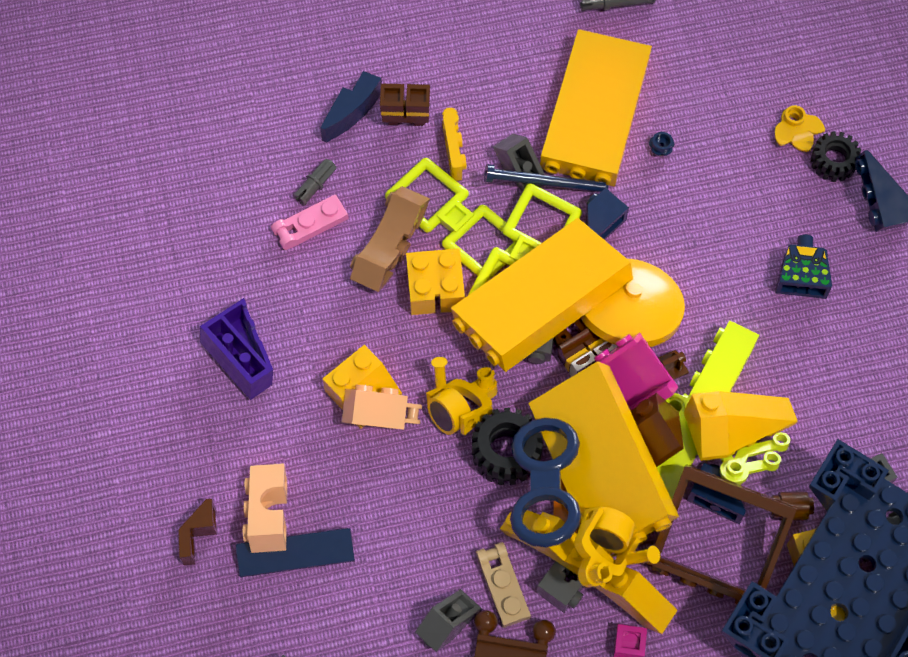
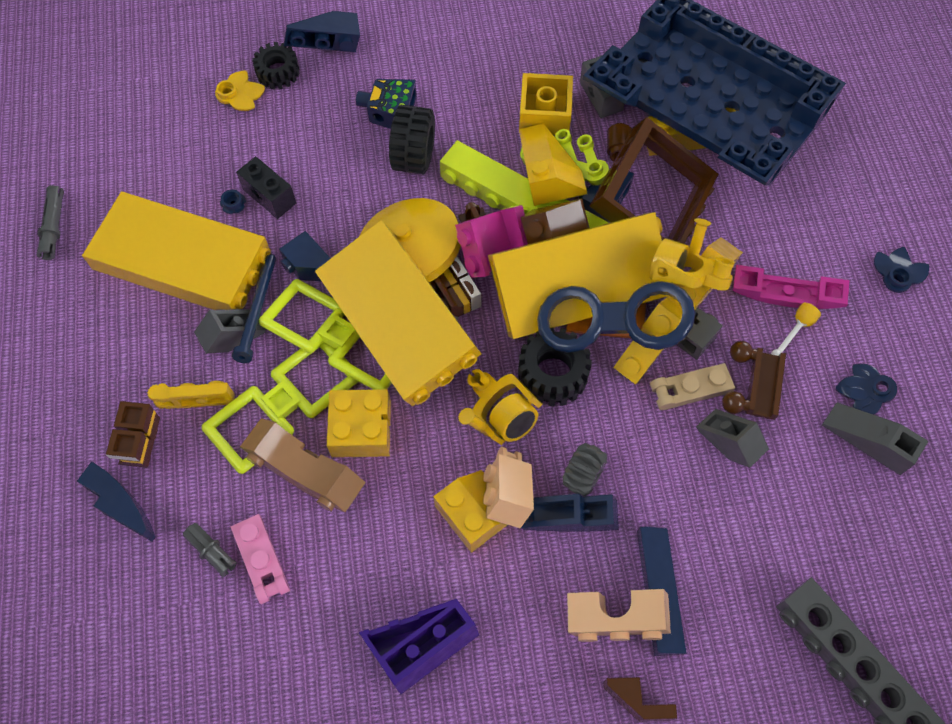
camera: 85 degrees left, 0 degrees up
(362, 470) = (573, 513): none -> dark blue slope
(402, 476) = (584, 469): none -> dark grey gear
(679, 169) = (266, 187): none -> black brick
(749, 289) = (411, 139): none -> black tyre
(824, 419) = (546, 101): none -> yellow brick

